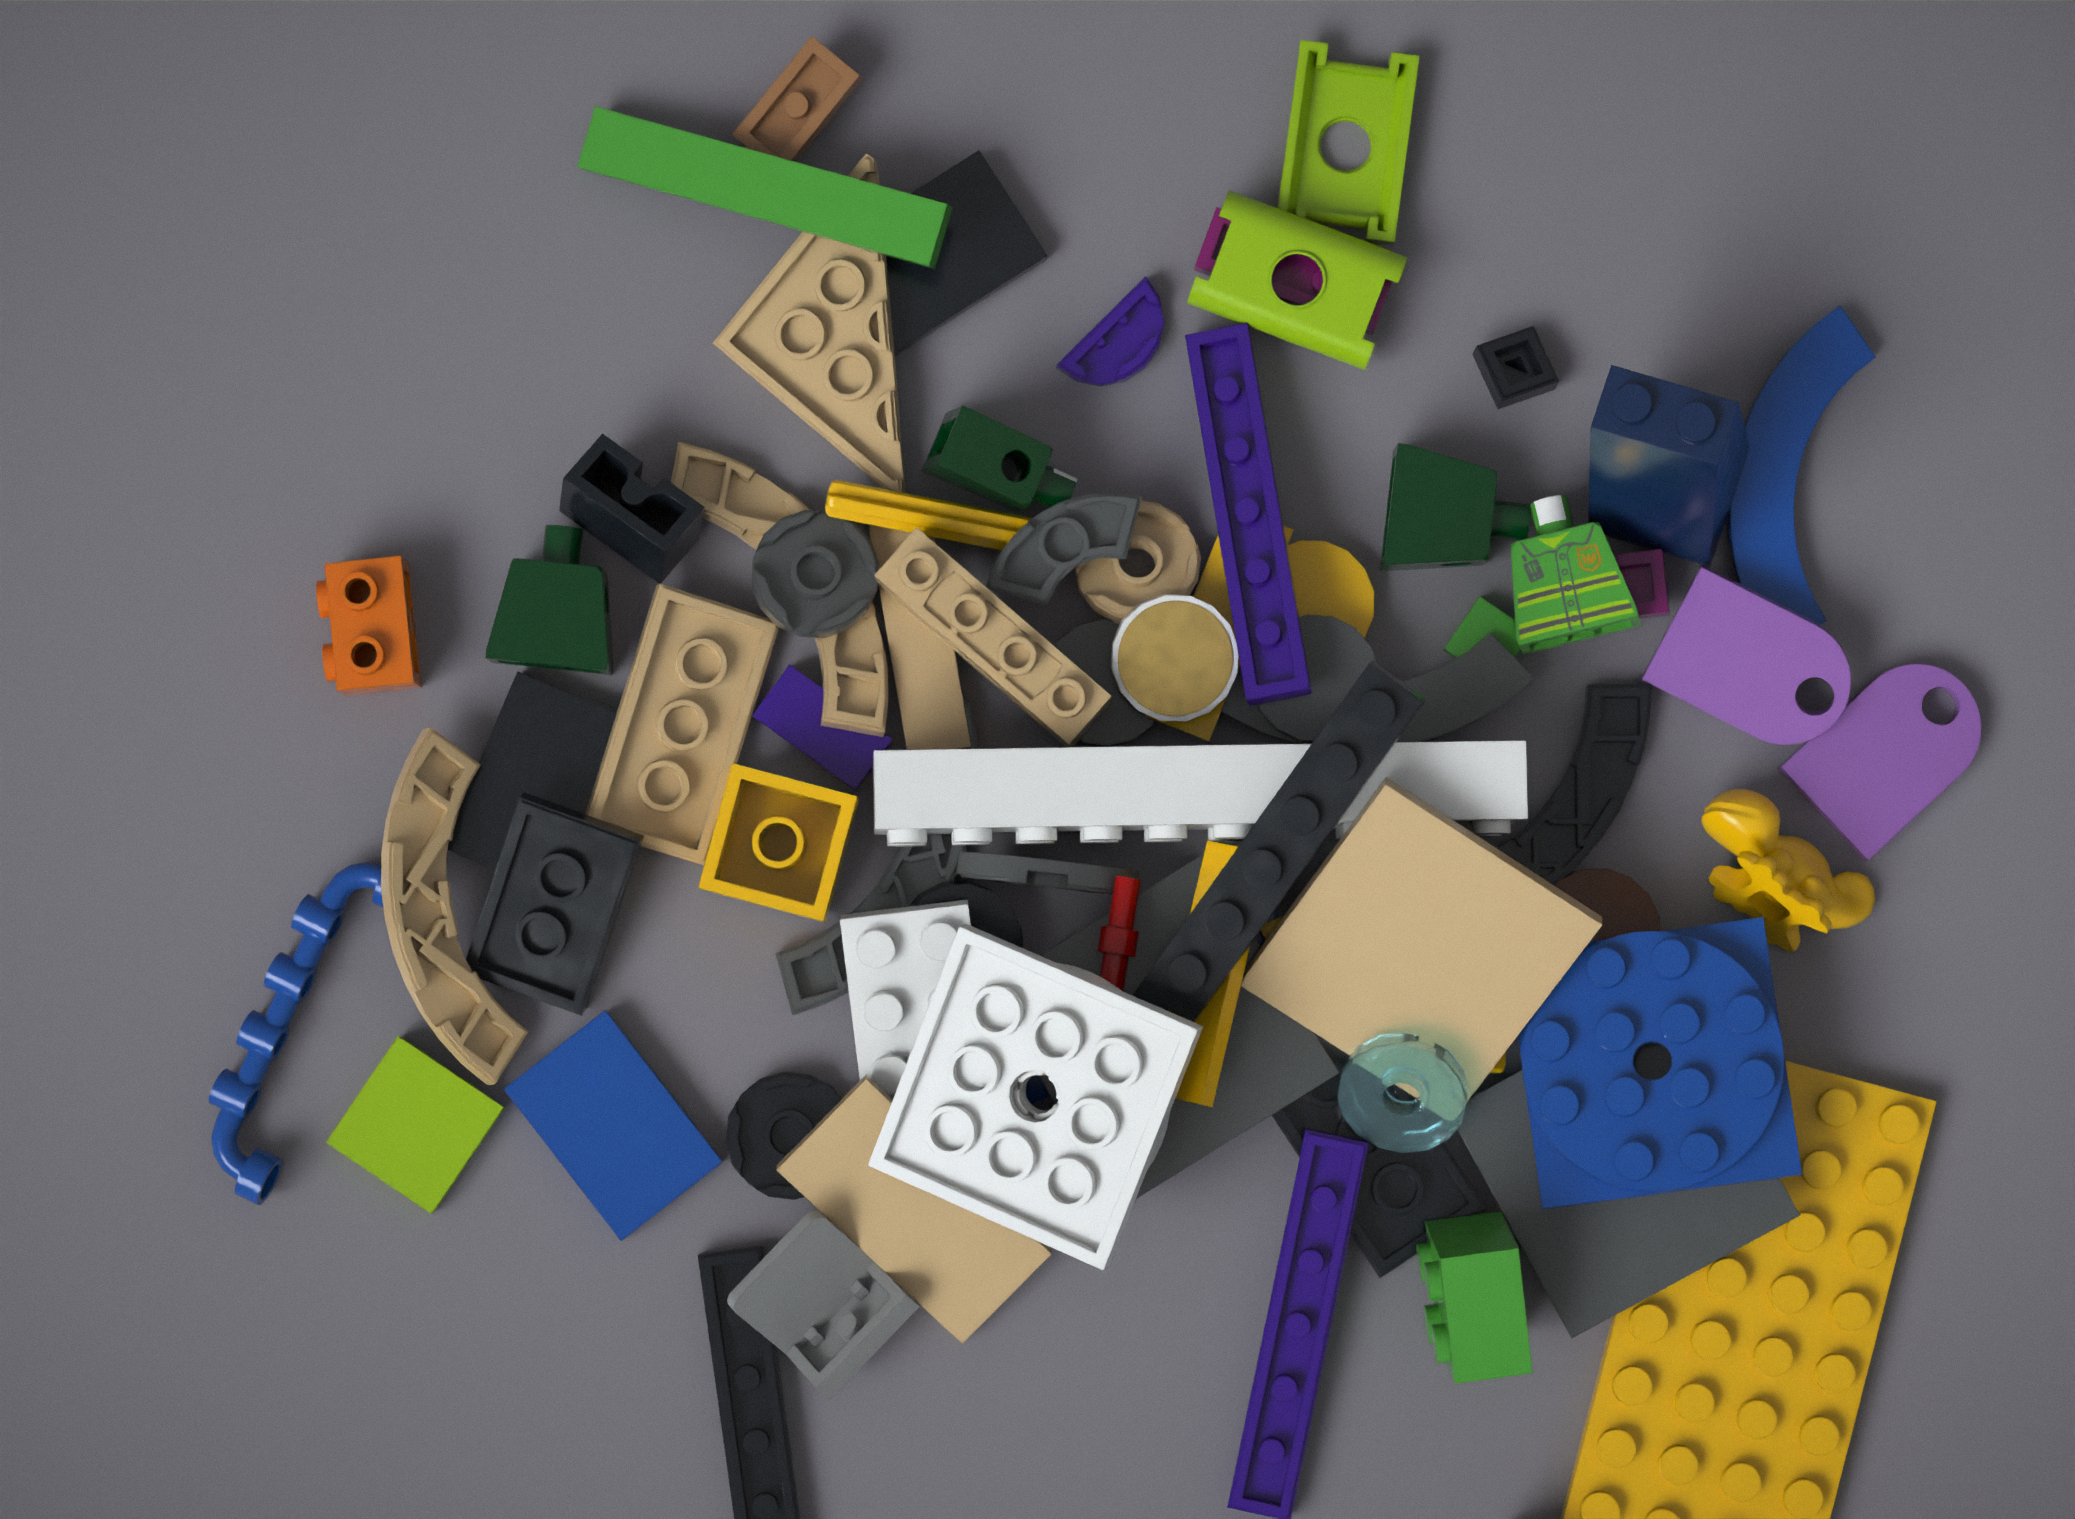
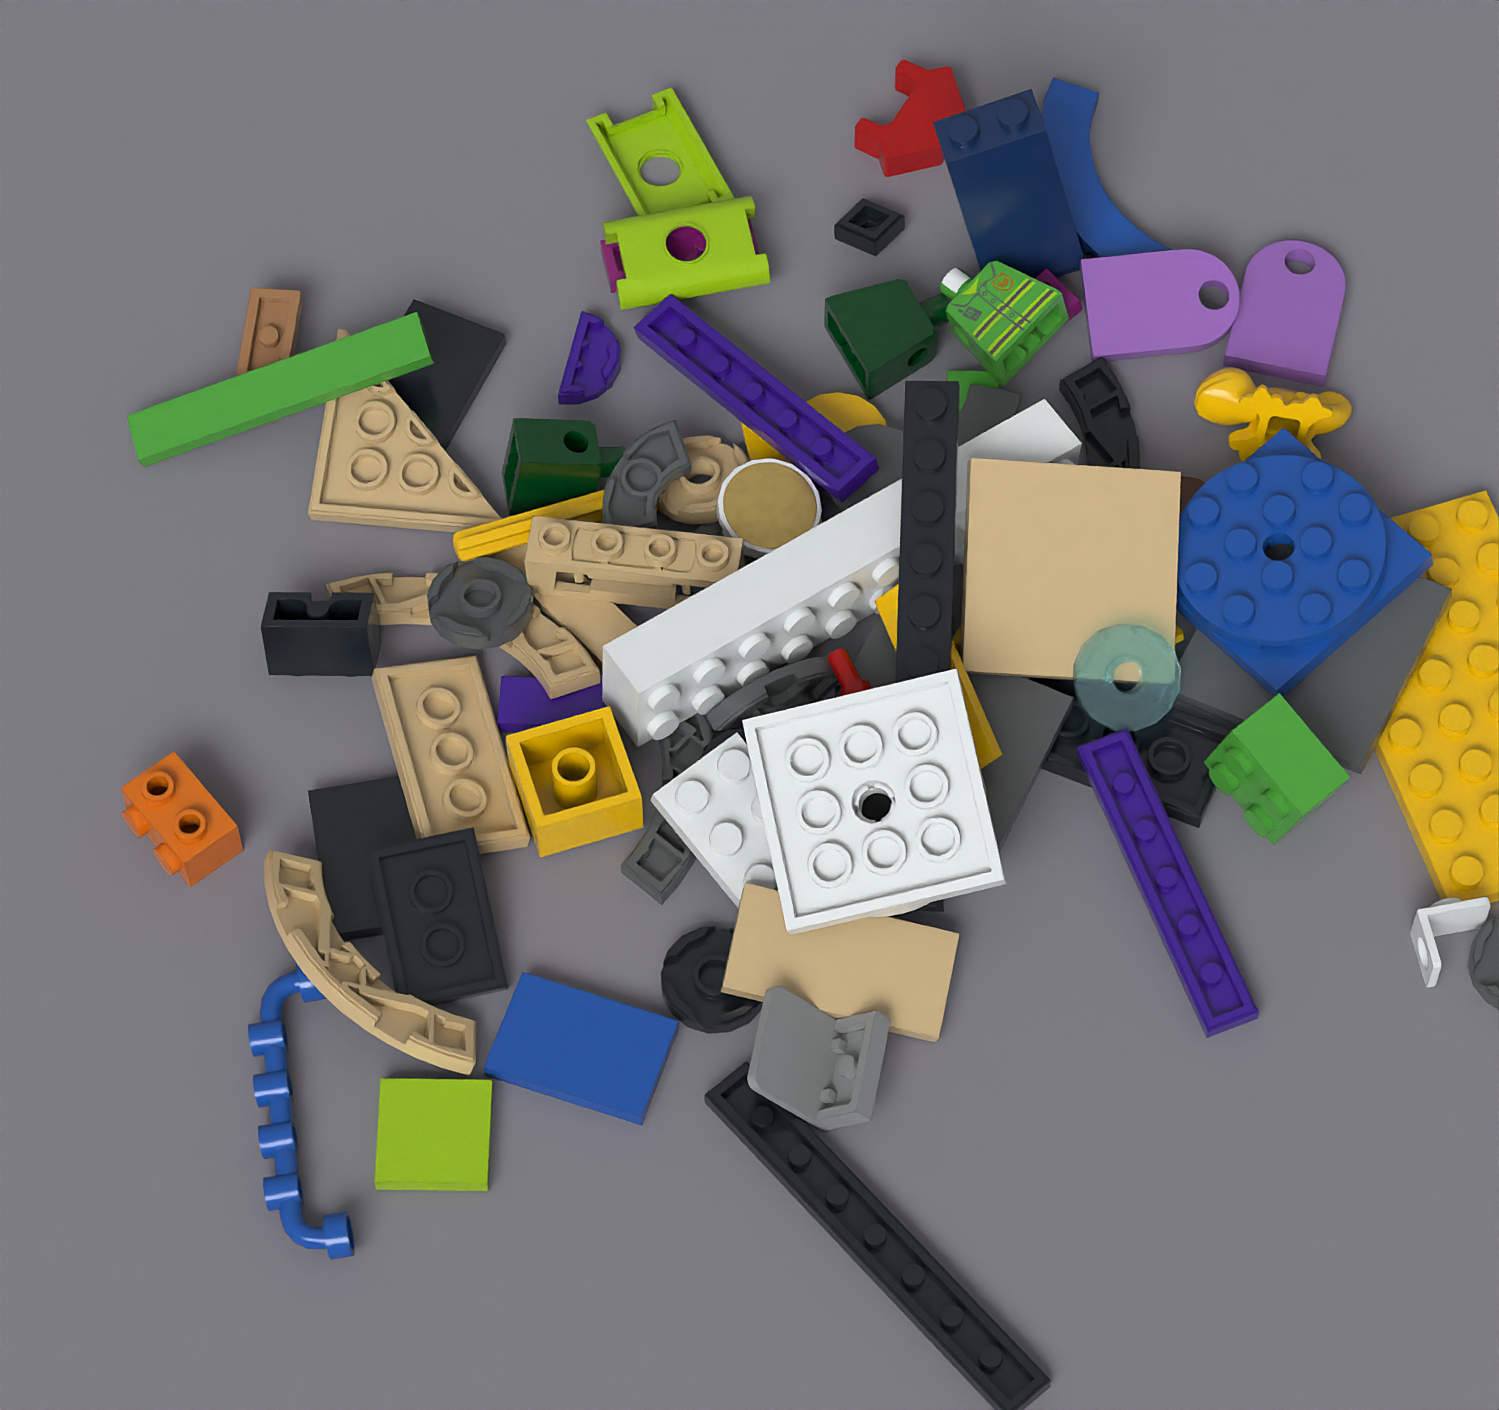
camera: 30 degrees left, 25 degrees down
(554, 610) = (312, 736): dark green torso -> none
(1661, 276) = (911, 139): none -> red piece

